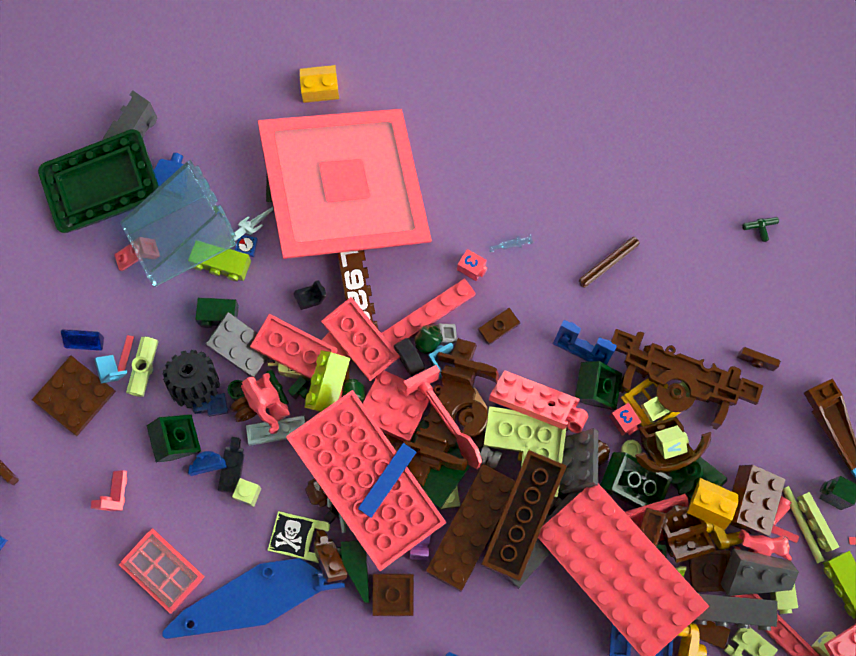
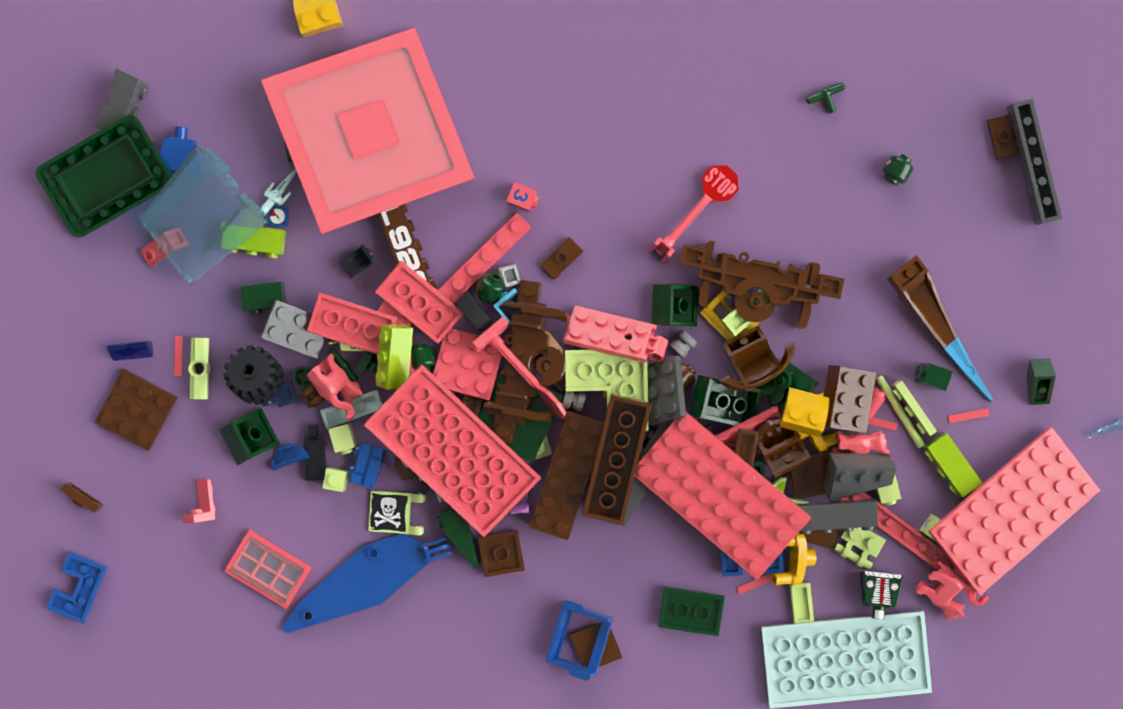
camera: 10 degrees left, 15 degrees up
(107, 369) = (164, 377): medium azure bracket -> none
(262, 455) = (343, 438): none -> yellowish green brick
(280, 484) = (367, 464): none -> blue brick
(329, 558) = (431, 530): reddish brown hinge -> none
(387, 480) = (474, 448): blue sticker -> none
(512, 243) = (567, 161): clear light blue piece -> none
(567, 340) = (636, 261): blue plate -> none
(602, 421) = (679, 347): none -> light grey wheel
(608, 262) = (667, 166): reddish brown axle -> none
(625, 420) = (707, 337): coral brick -> none
(631, 447) = (717, 365): yellowish green tile -> none
(652, 285) = (718, 185): none -> coral piece
(671, 442) = (756, 357): yellowish green brick -> none
(758, 359) = (837, 248): reddish brown plate -> none
(821, 299) = (898, 169): none -> dark green head

